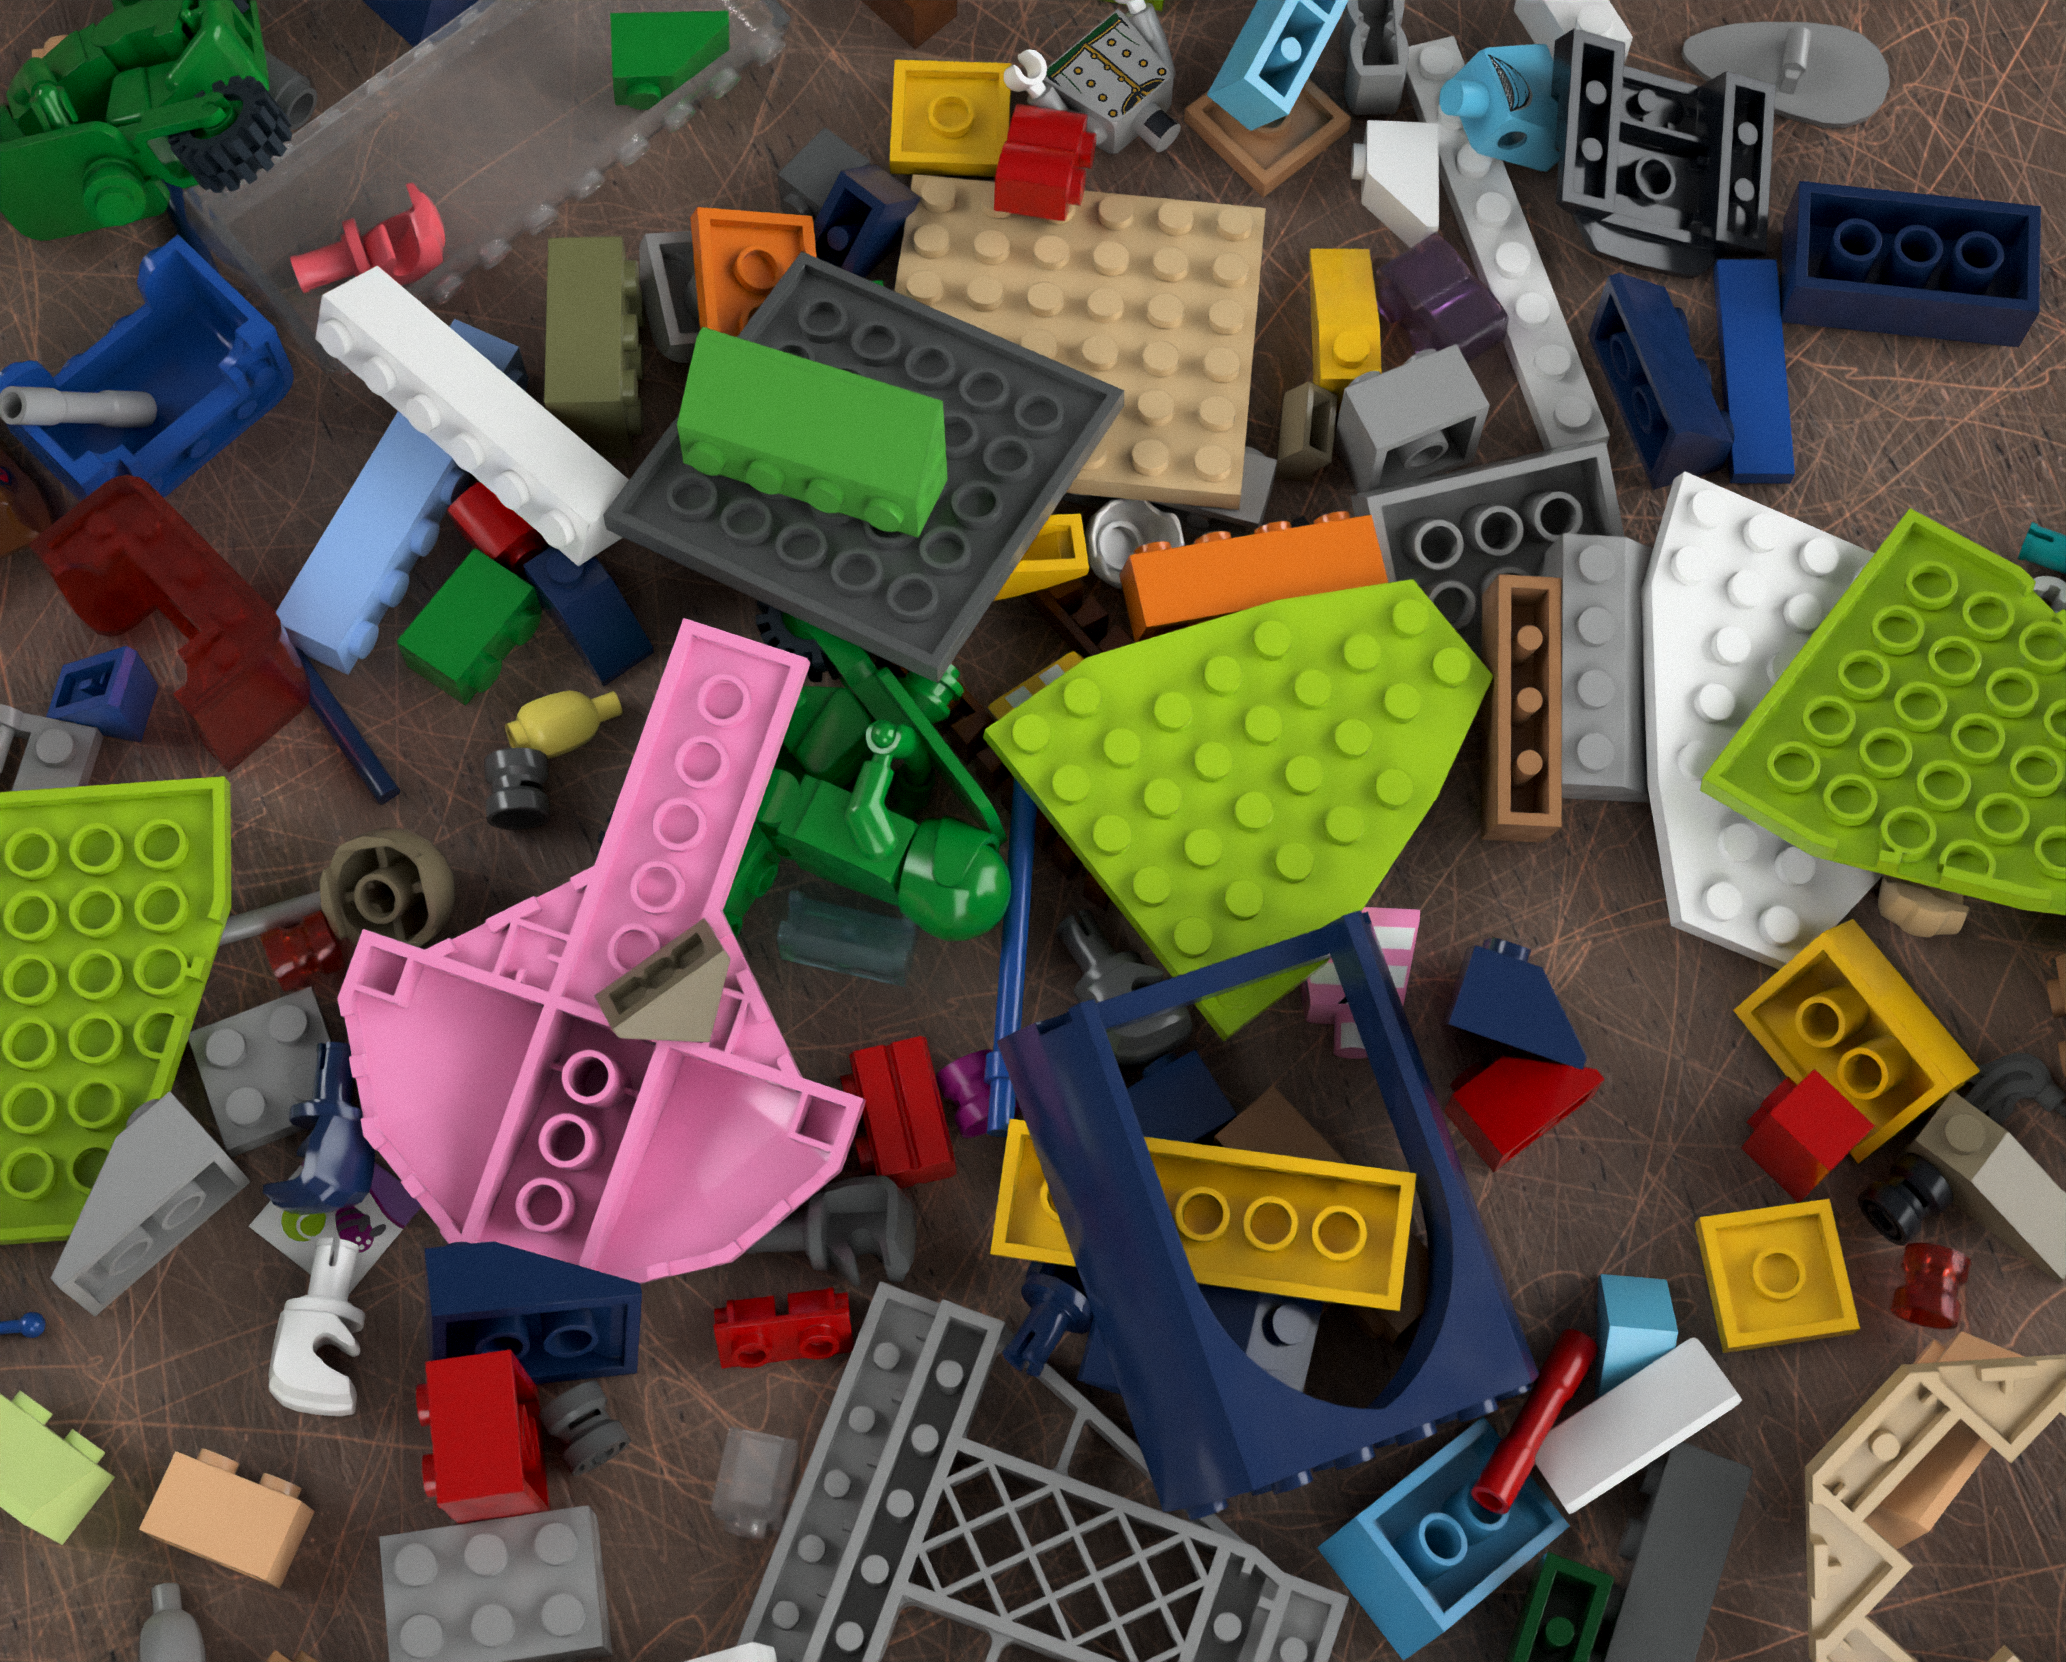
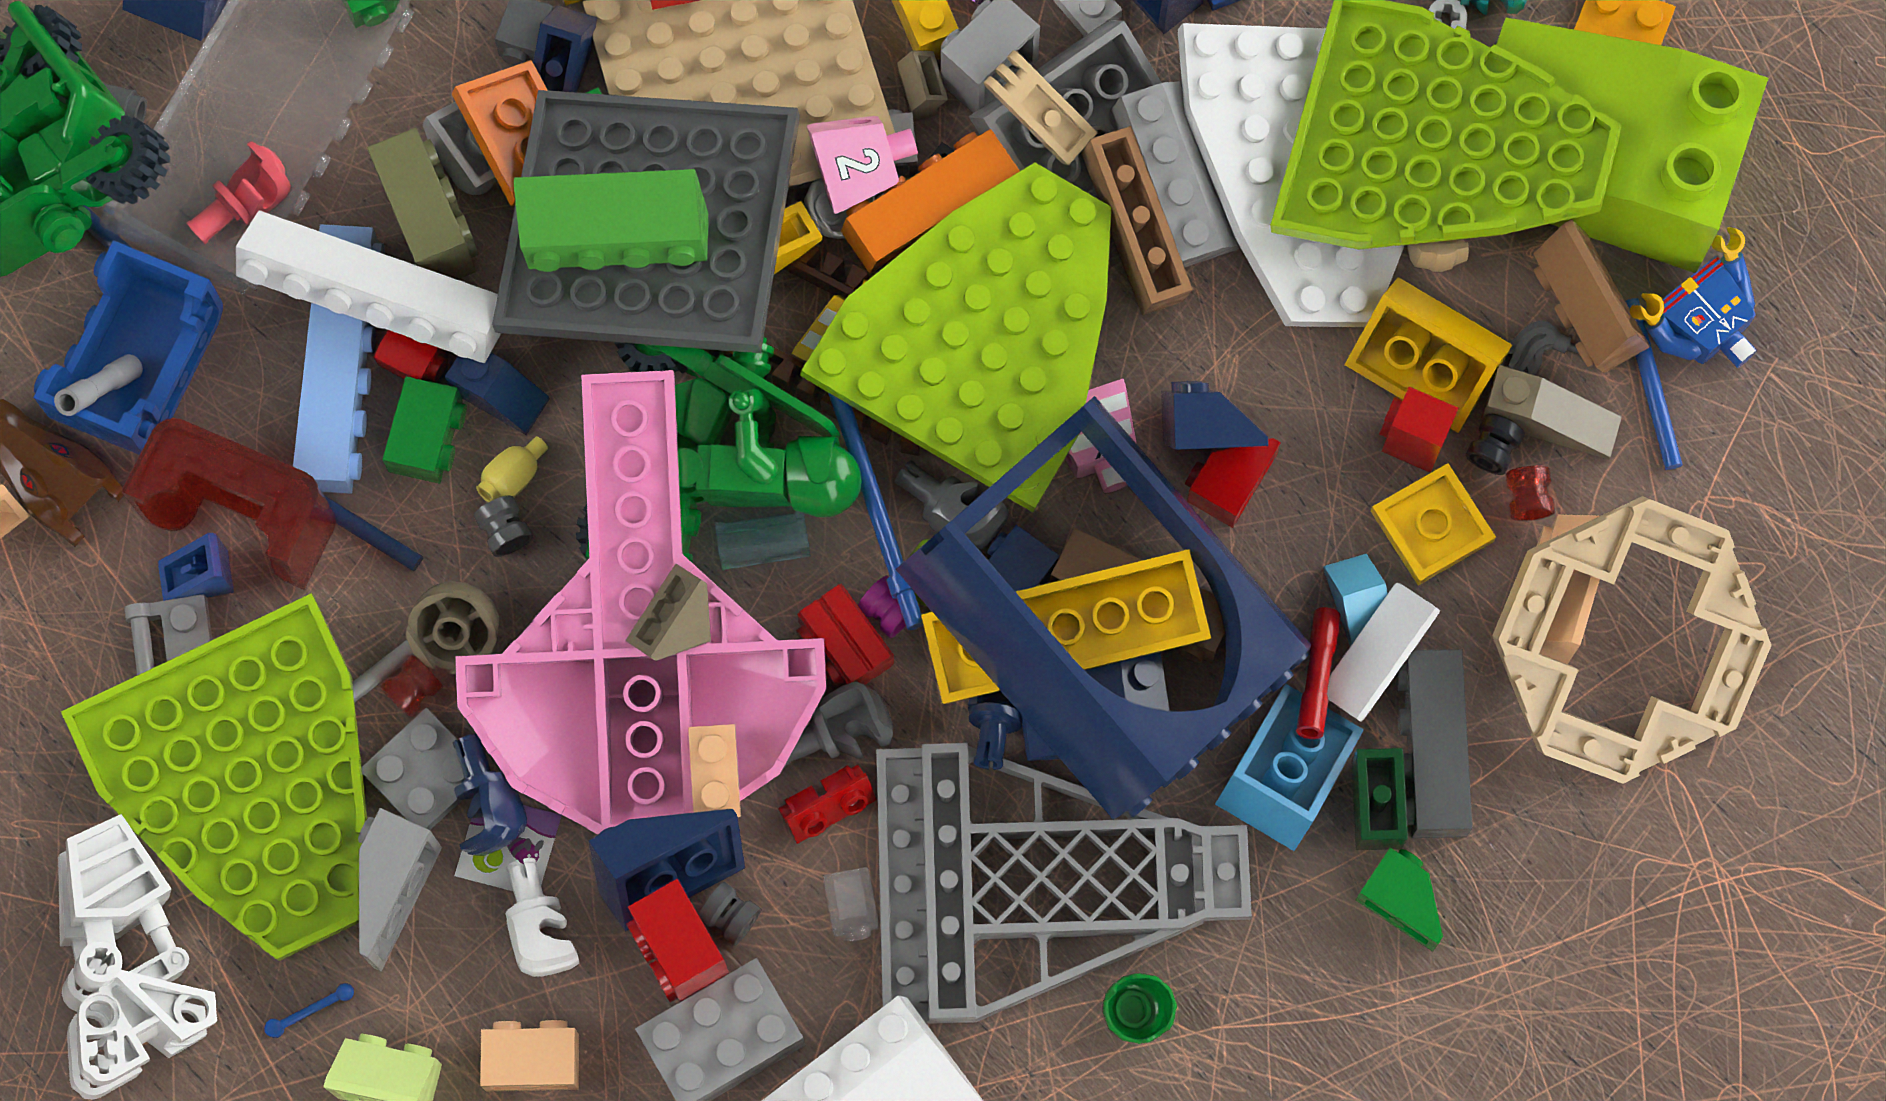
camera: 20 degrees left, 5 degrees up
(642, 1219) = (714, 768): none -> light nougat plate
(1177, 485) = (858, 158): none -> bright pink torso
(1448, 512) = (1041, 109): none -> tan hinge

